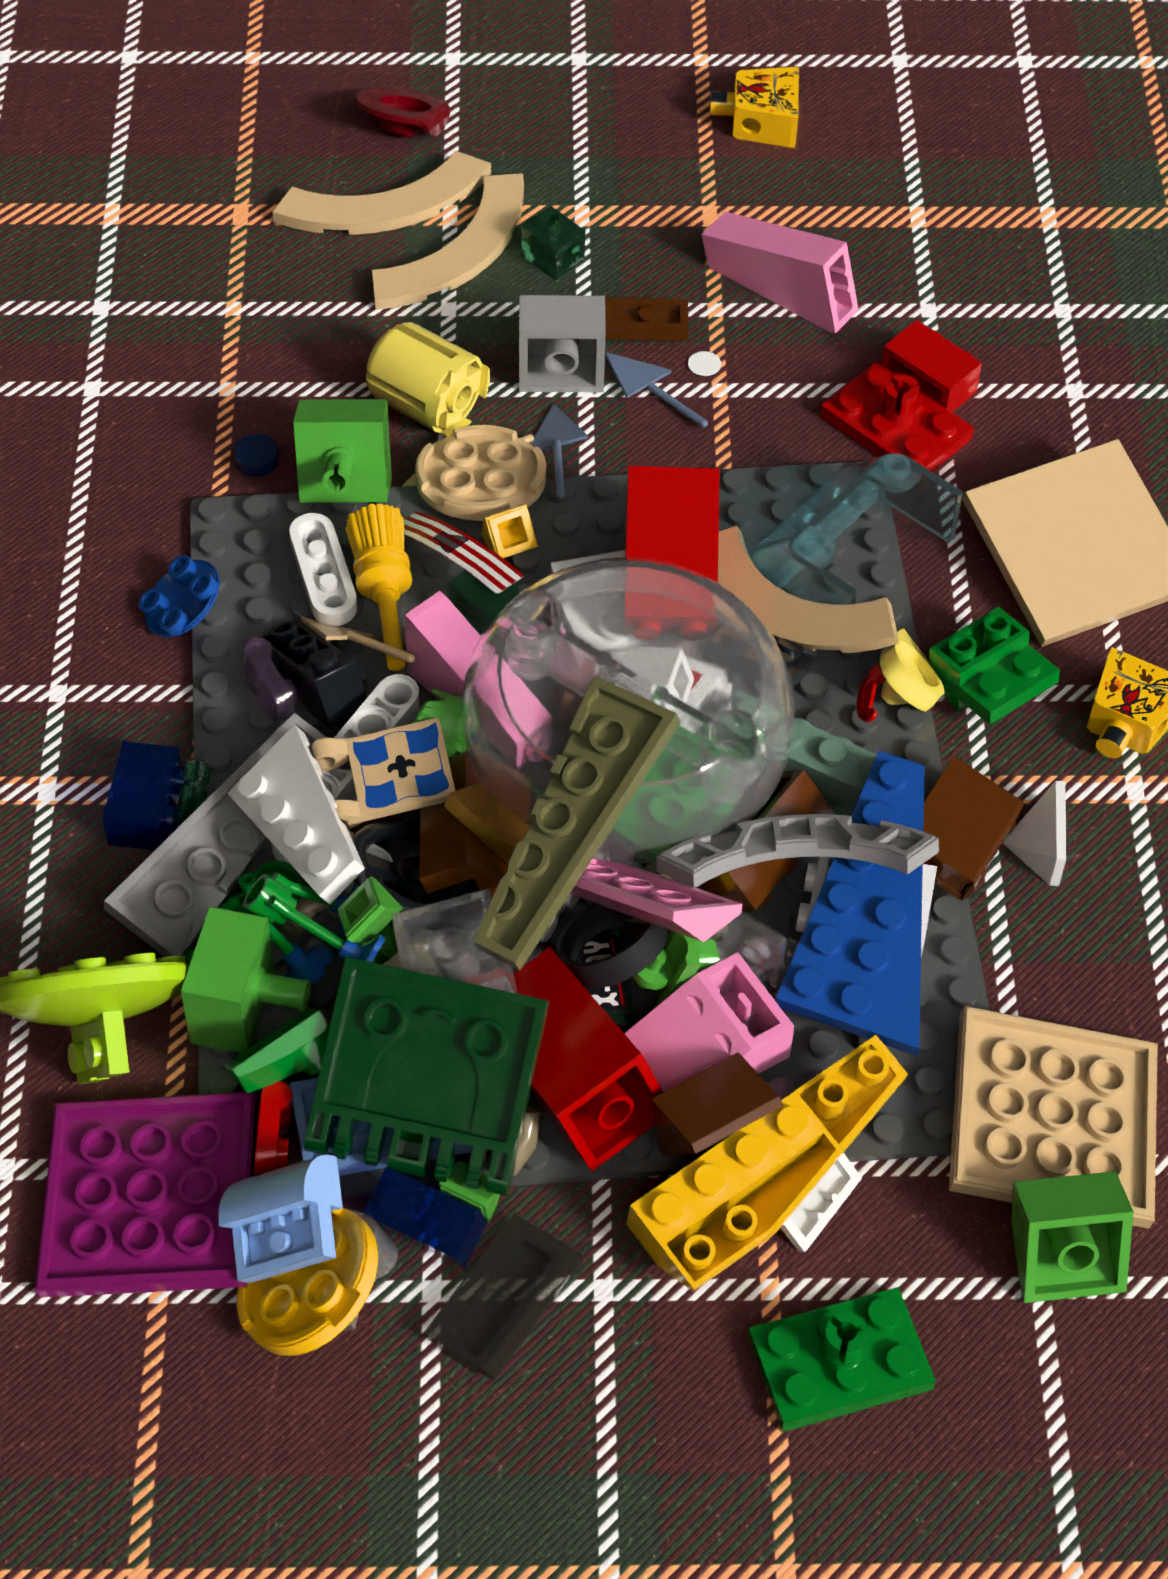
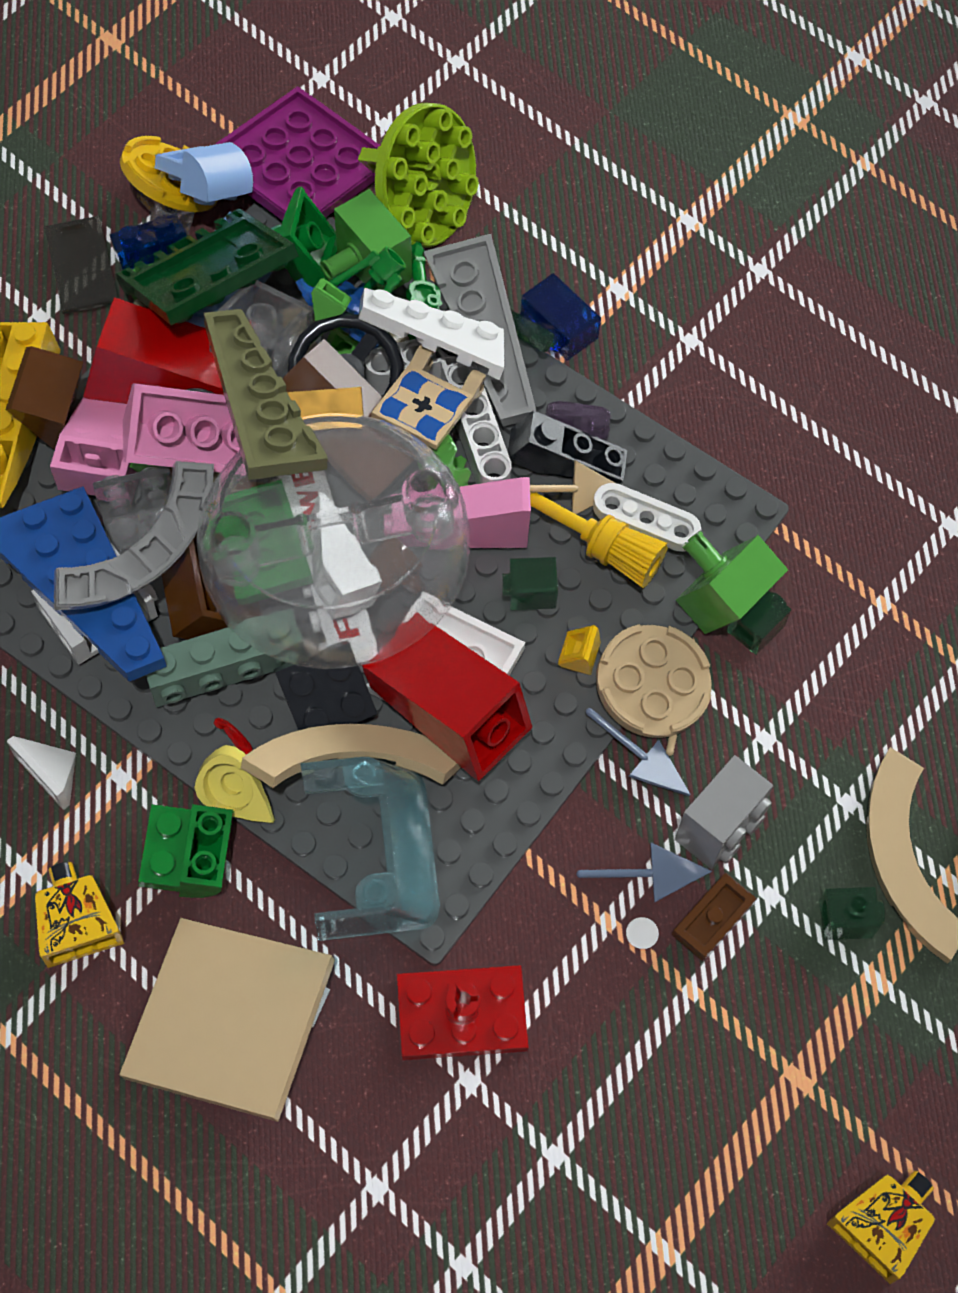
camera: 130 degrees right, 10 degrees up
(180, 597) = (698, 433): blue dish -> none
(256, 455) = (801, 570): dark blue tile -> none
(273, 1117) = (264, 208): red plate -> none
(426, 377) = (768, 701): light yellow cylinder -> none
(462, 550) = (585, 590): sticker -> none
(785, 266) = (678, 1054): bright pink slope -> none
(936, 363) = (483, 1078): red brick -> none
(971, 822) = (96, 712): reddish brown piece -> none

